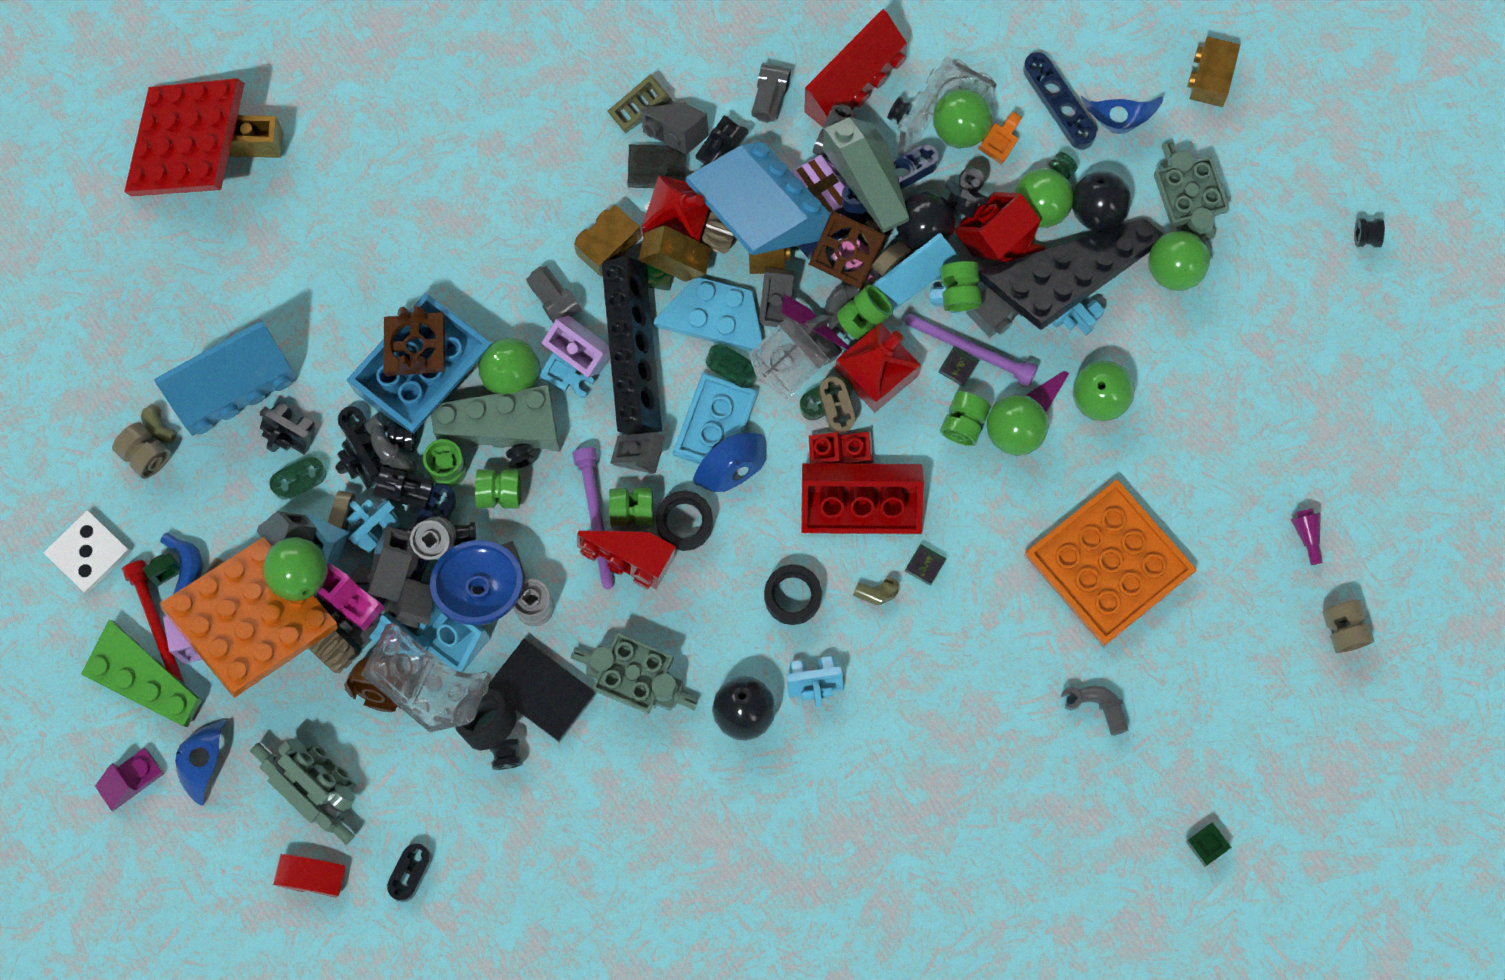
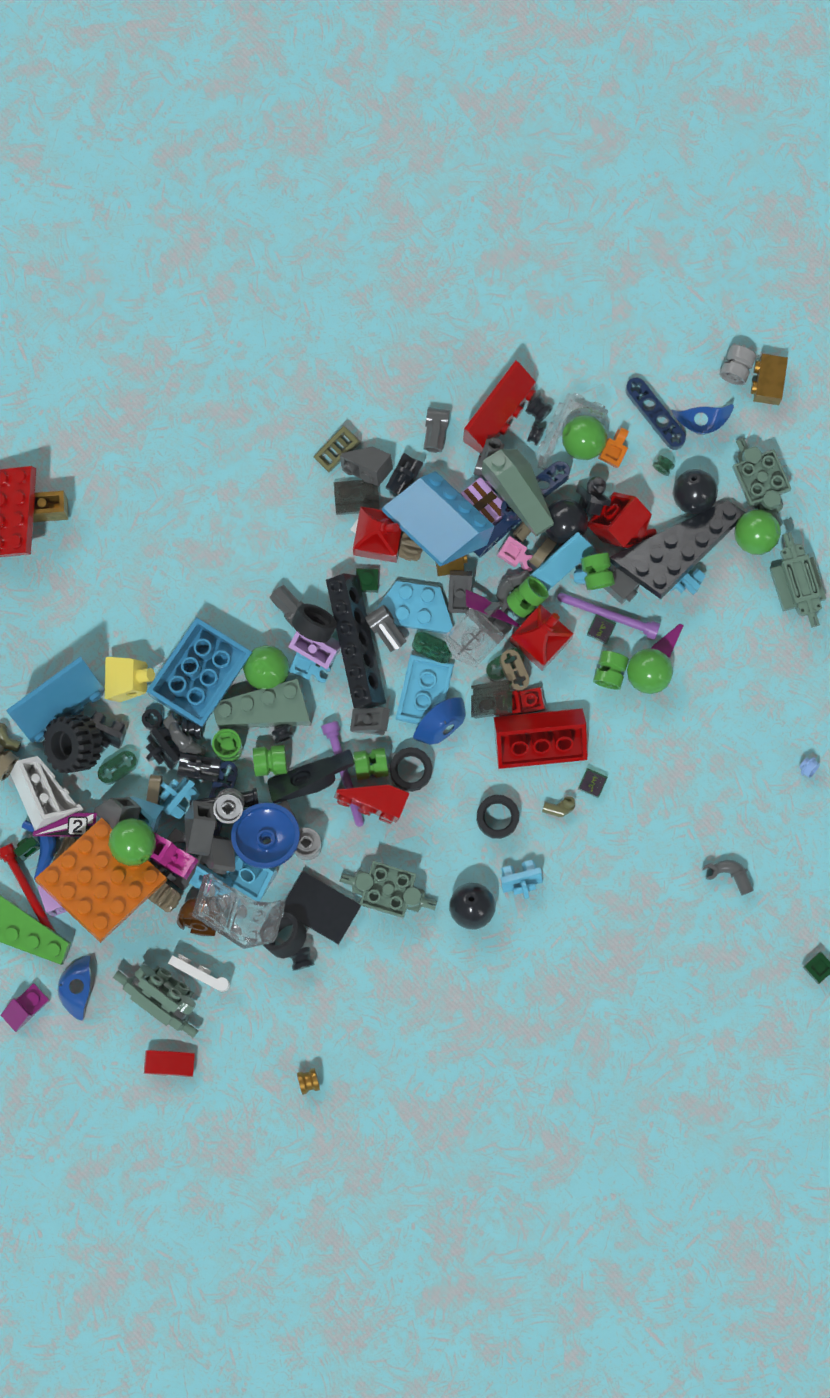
camera: 10 degrees left, 5 degrees up
(192, 503) = (41, 793): none -> white wedge
(218, 544) = (70, 826): none -> sticker
(240, 437) = (72, 743): none -> black tyre
(323, 363) = (126, 678): none -> light yellow torso
(368, 759) = (201, 974): none -> white plate
(402, 869) = (247, 1054): black beam -> none
(417, 364) = (197, 674): reddish brown piece -> none
(493, 920) = (308, 1081): none -> pearl gold wheel
(547, 516) = (309, 777): none -> black piece
(578, 314) = (314, 623): none -> black tyre
(607, 238) = (326, 559): pearl gold brick -> none
(670, 327) = (383, 623): none -> dark grey piece
(674, 253) = (380, 566): pearl gold brick -> none
(802, 439) = (491, 699): none -> clear smoke plate
(819, 257) = (529, 541): reddish brown piece -> none
(907, 79) = (539, 409): none -> black wheel
(1047, 194) = (653, 491): bright green piece -> none
(1103, 390) = (711, 638): bright green piece -> none
(1110, 562) = (728, 767): orange plate -> none
(1175, 47) = (739, 361): none -> light grey wheel
(1219, 574) = (809, 767): none -> light blue plate
(1227, 329) = (798, 581): none -> sand green piece

